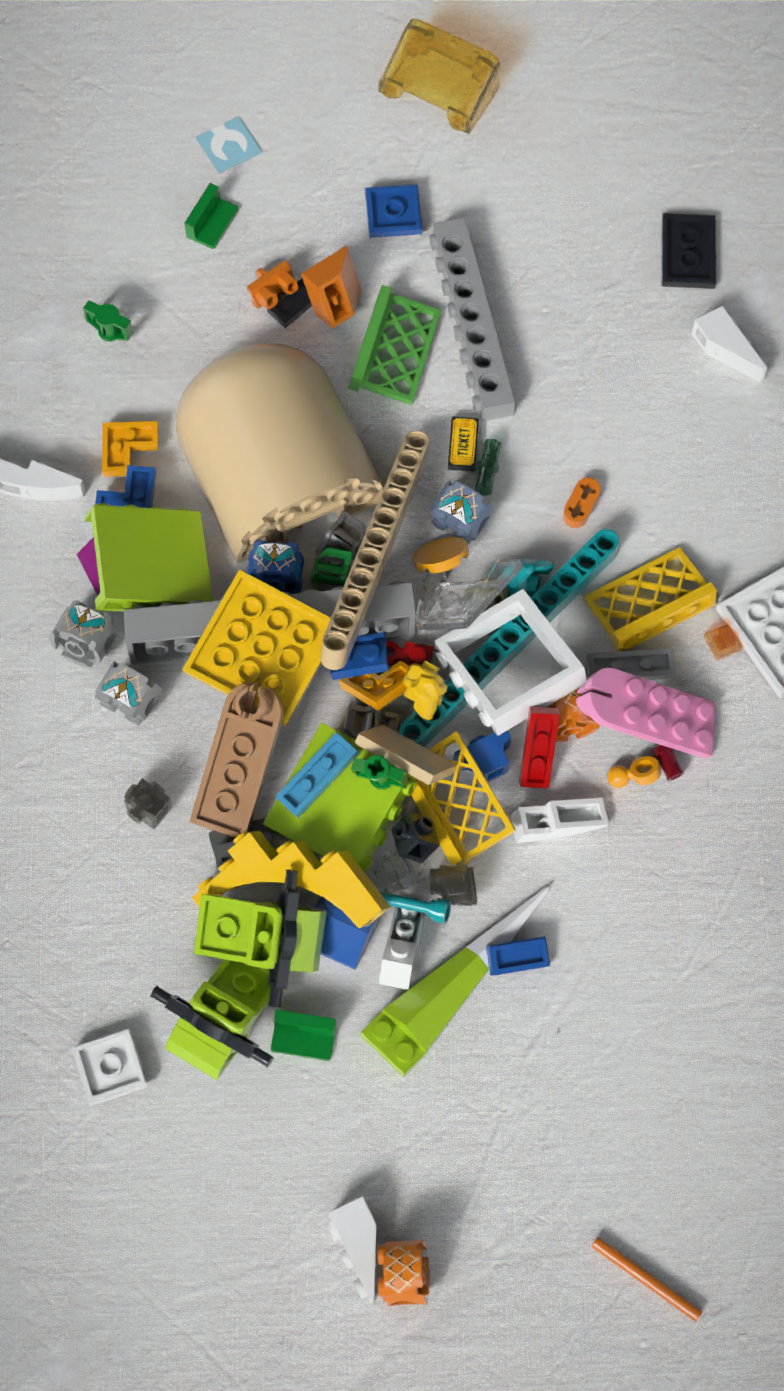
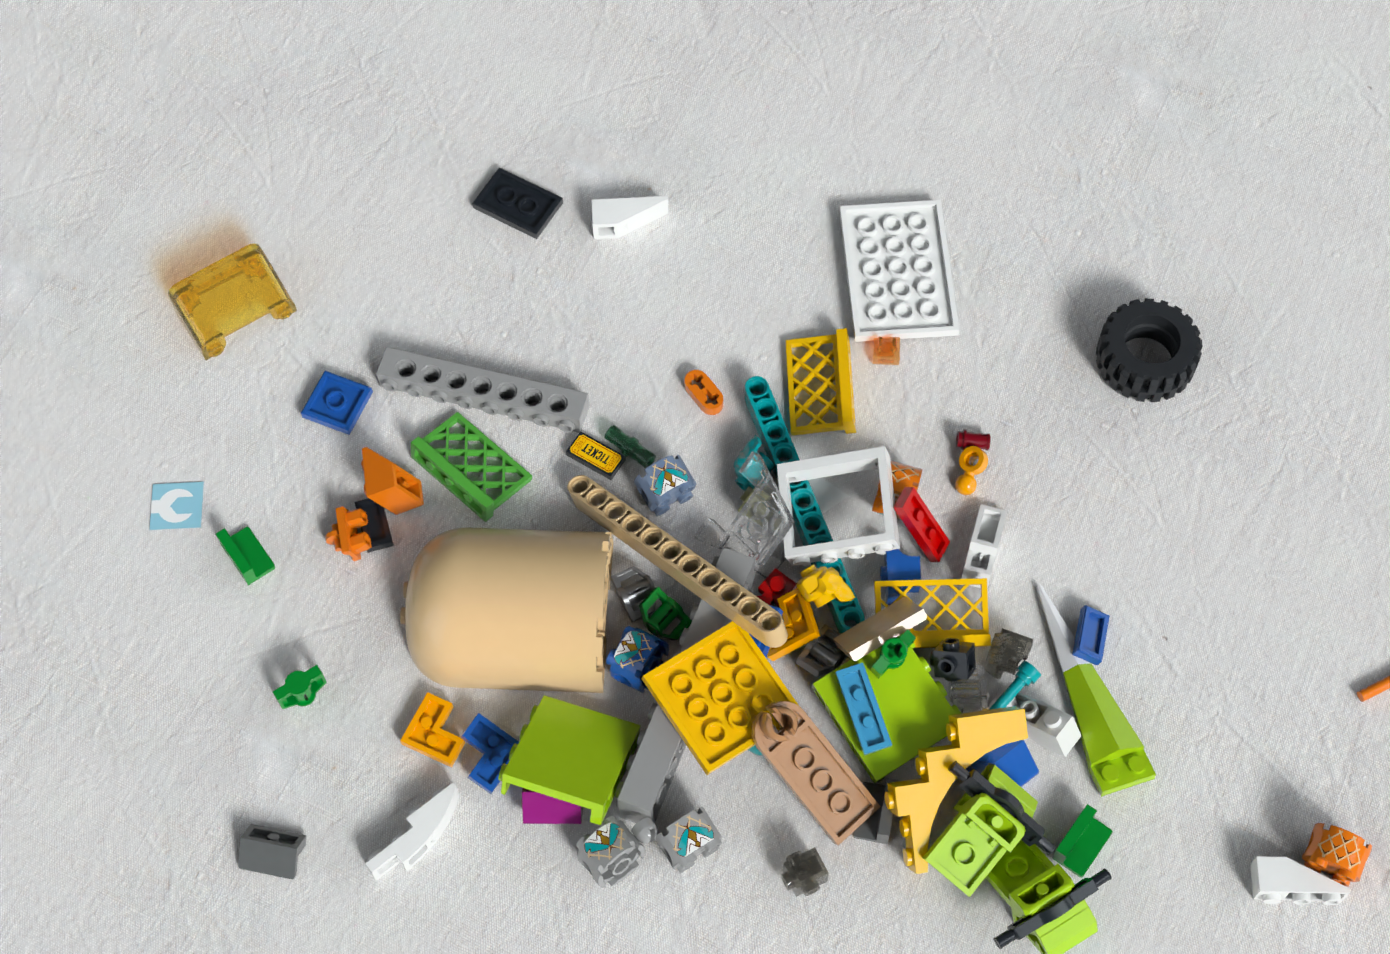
camera: 60 degrees left, 5 degrees down
(114, 650) = (645, 830): none -> light grey hinge
(441, 554) = (696, 519): light orange tile -> none
(647, 664) = (876, 420): light grey plate -> none
(649, 711) = (931, 427): bright pink plate -> none

